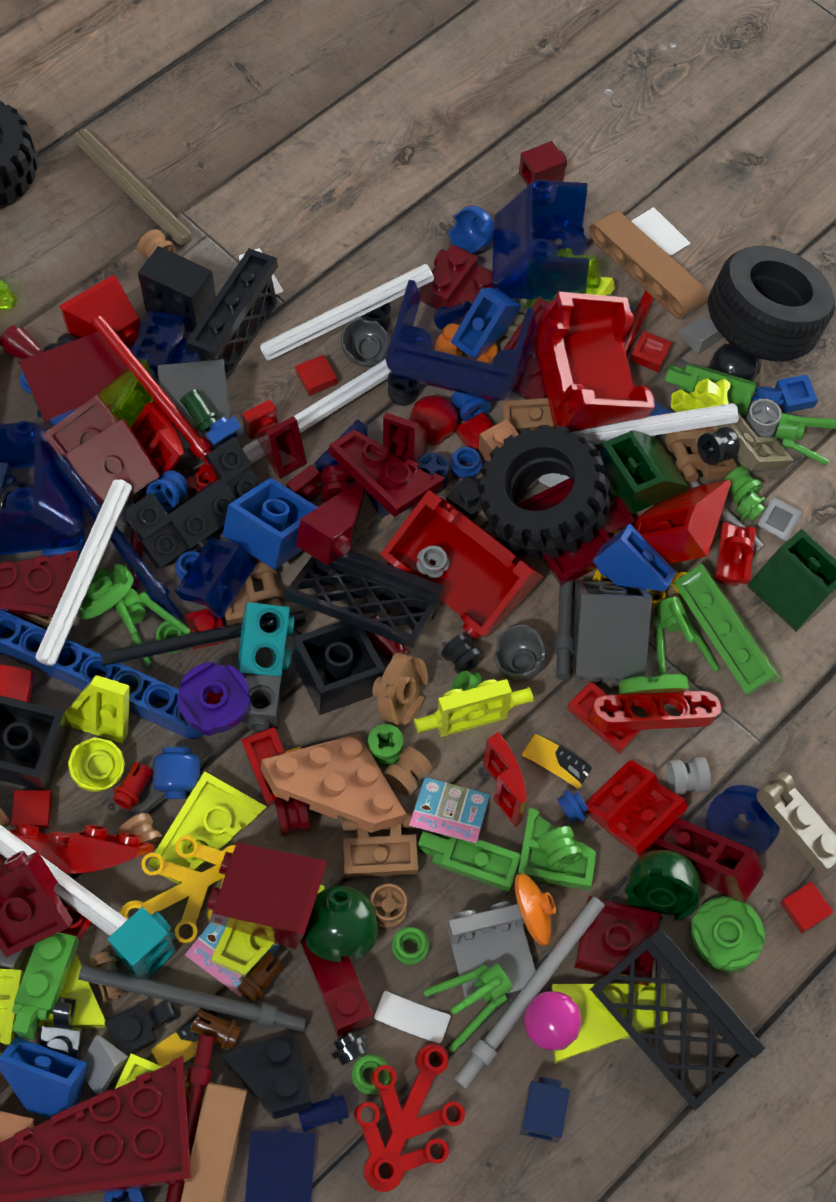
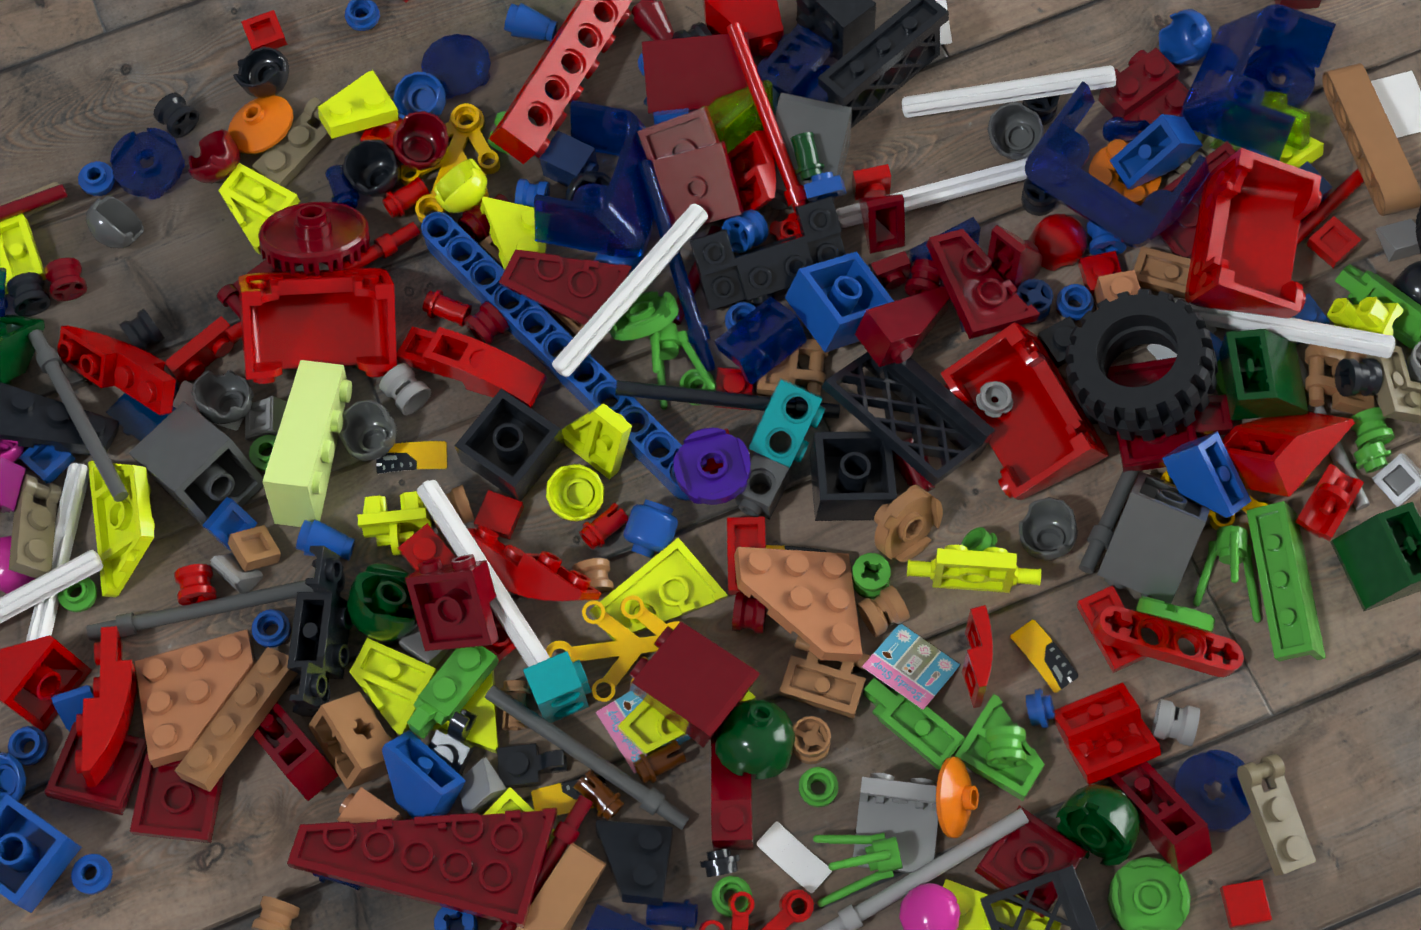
camera: 30 degrees right, 5 degrees up
(316, 375) = (951, 150): red tile -> none
(462, 653) = (988, 508): black wheel -> none

